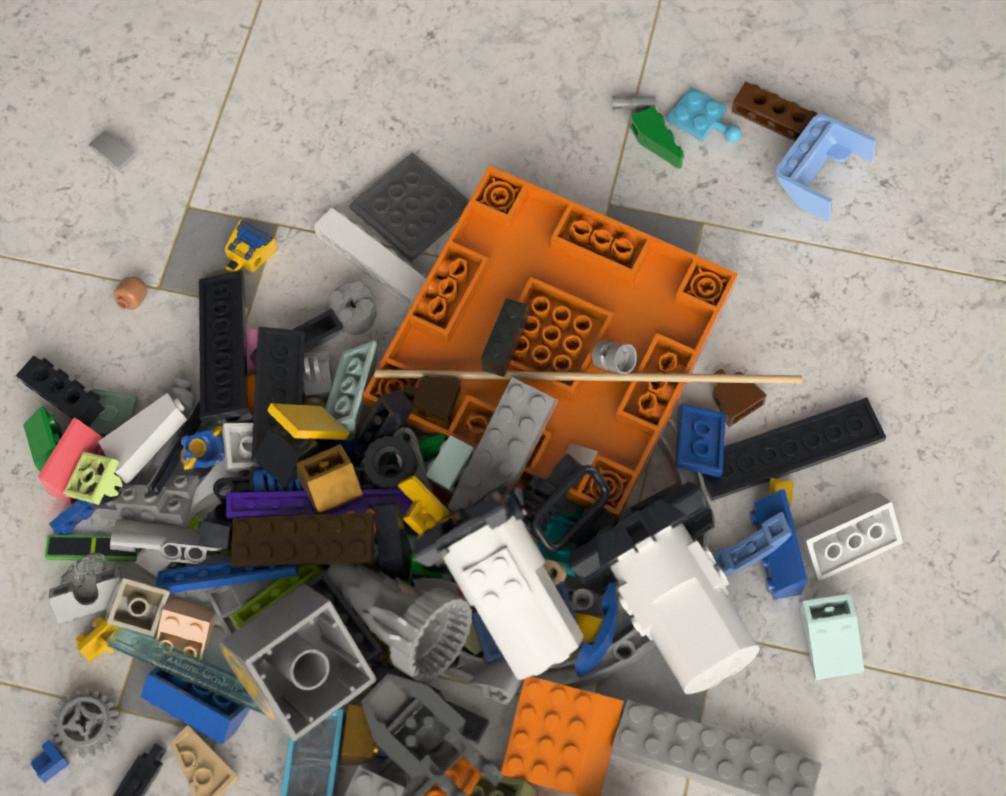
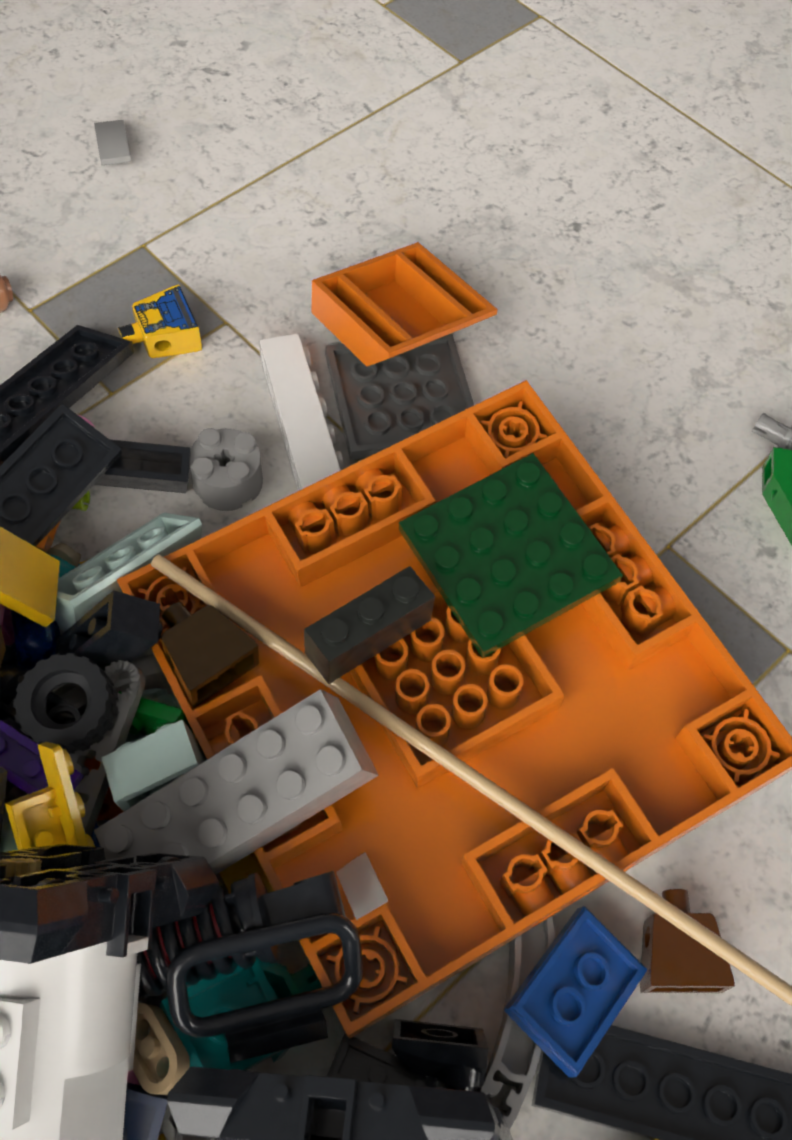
camera: 25 degrees right, 5 degrees down
(317, 375) = (107, 518): light grey brick -> none
(376, 156) = (395, 303): none -> orange slope
(542, 262) = (509, 554): none -> dark green plate
(614, 356) = (519, 763): light grey wheel -> none

